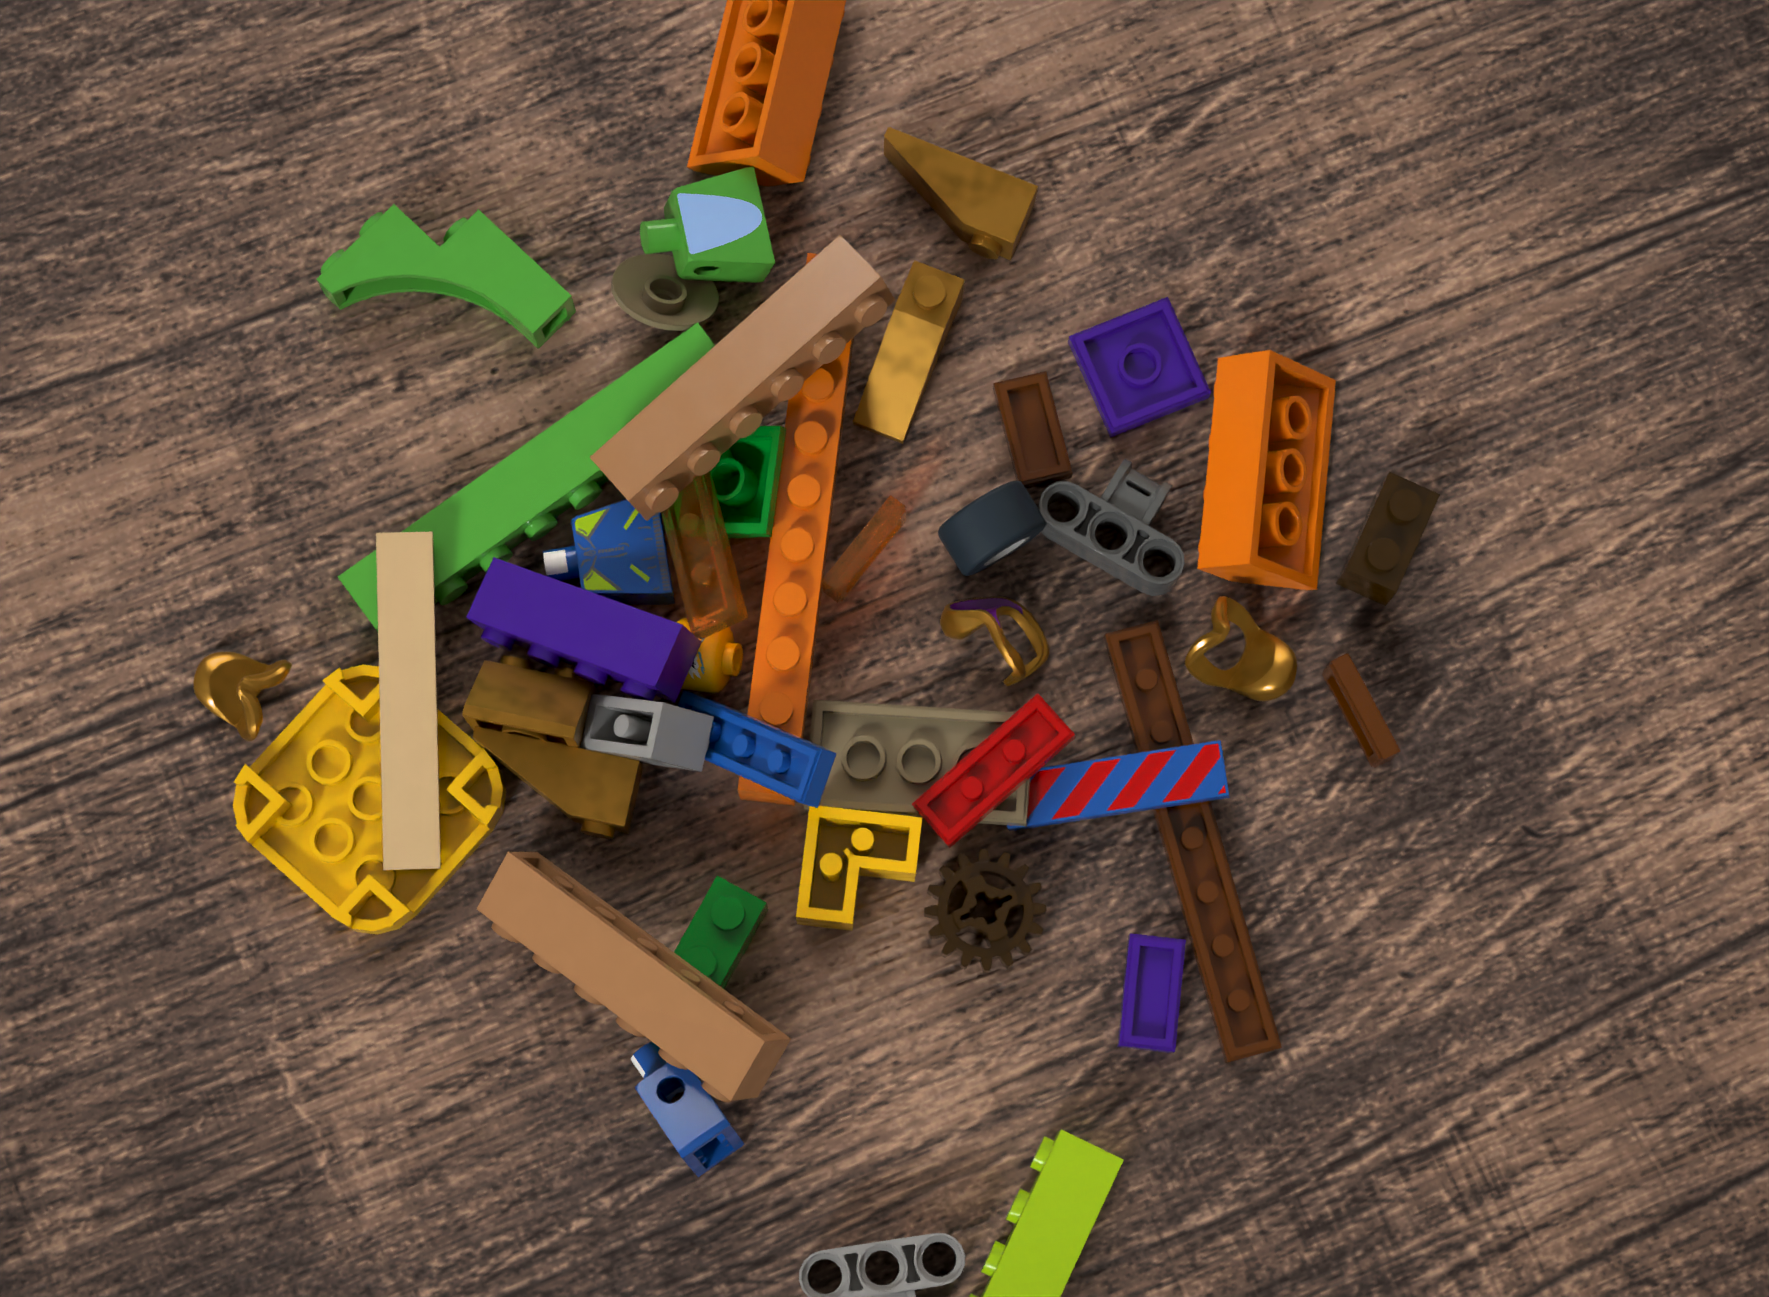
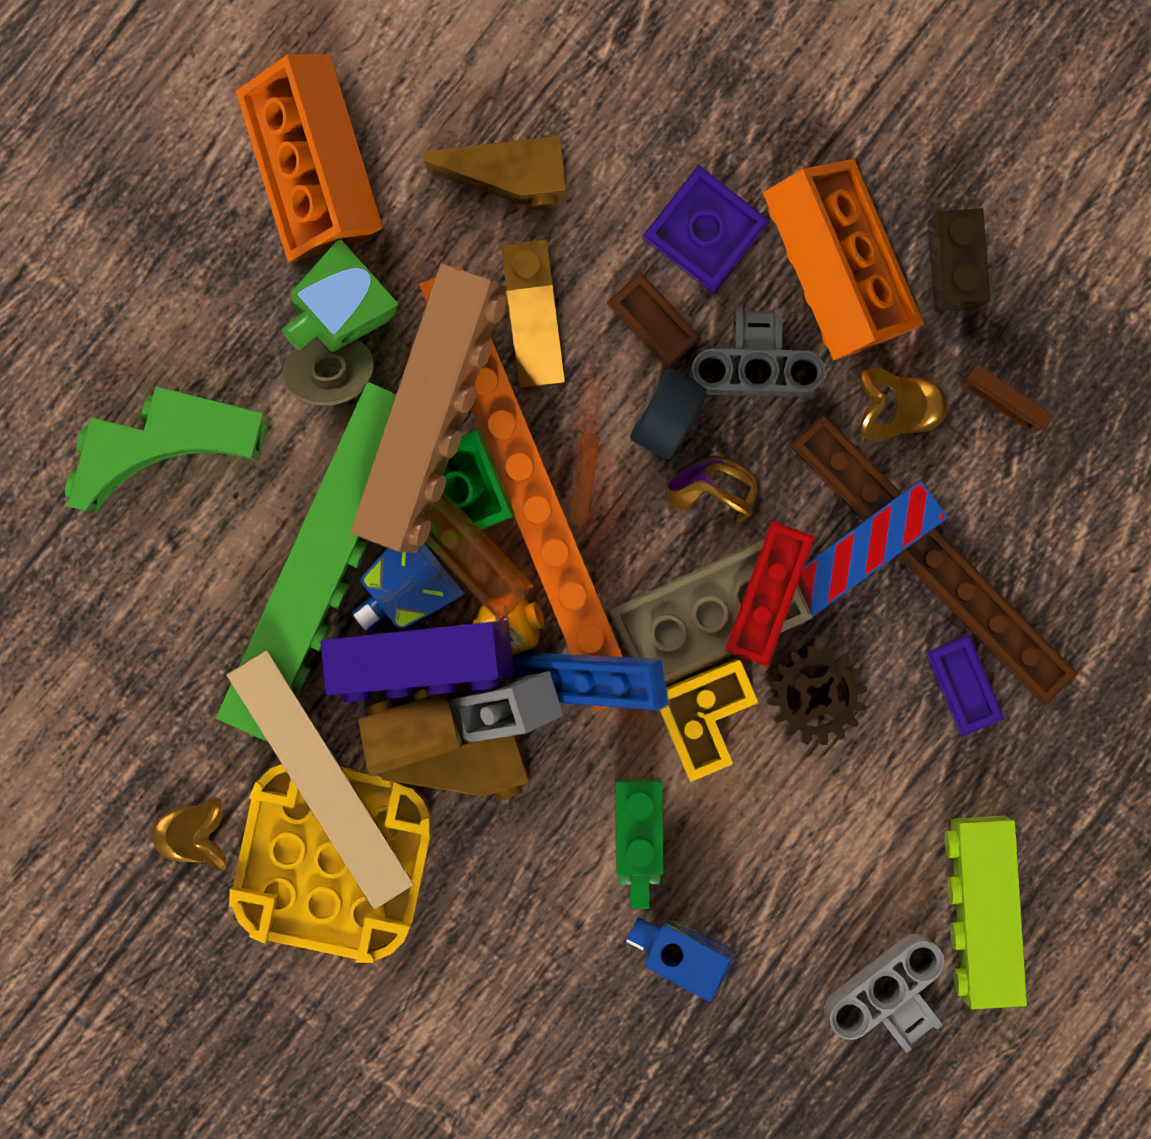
camera: 25 degrees left, 10 degrees up
(633, 977) = (599, 890): medium nougat brick -> none

